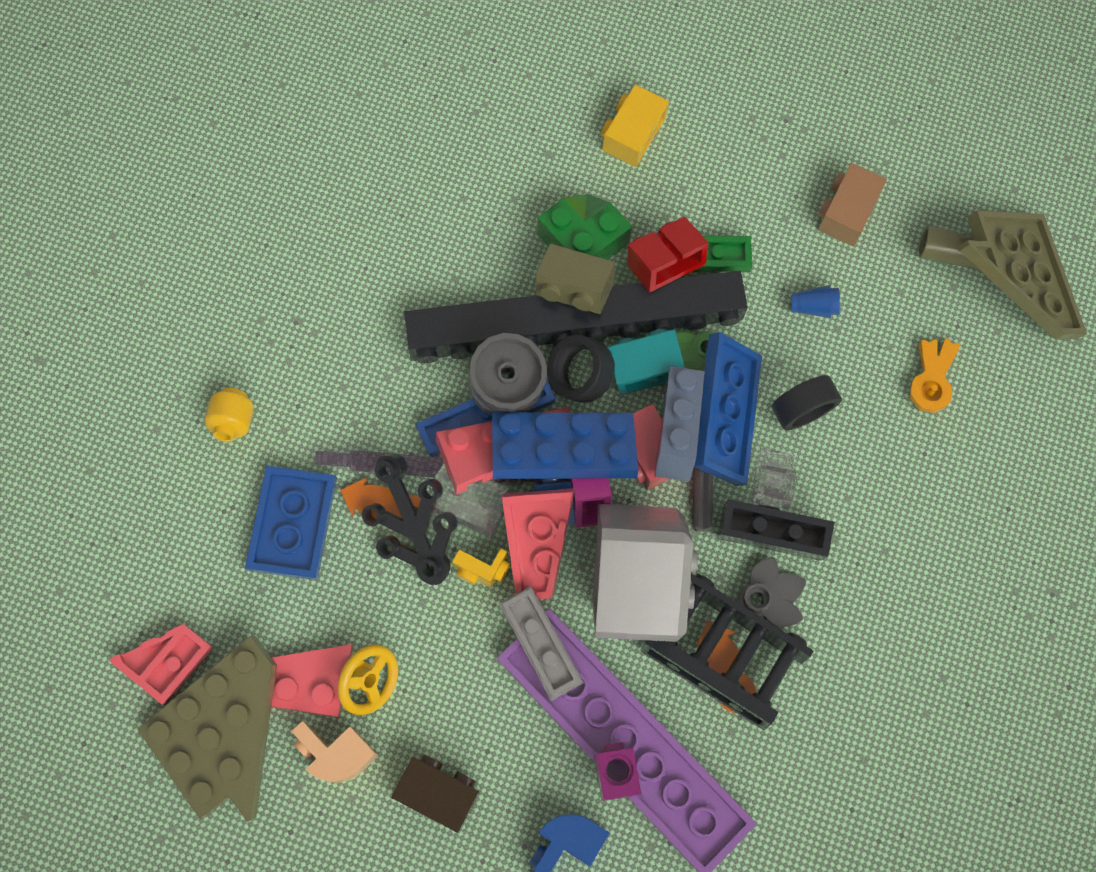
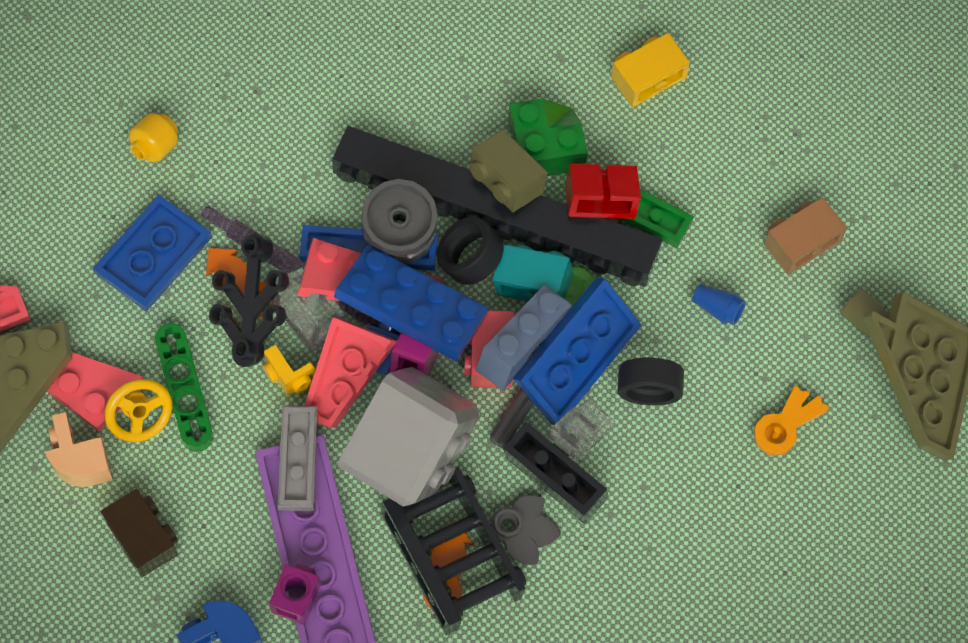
camera: 30 degrees right, 5 degrees down
(390, 636) = (183, 387): none -> green beam

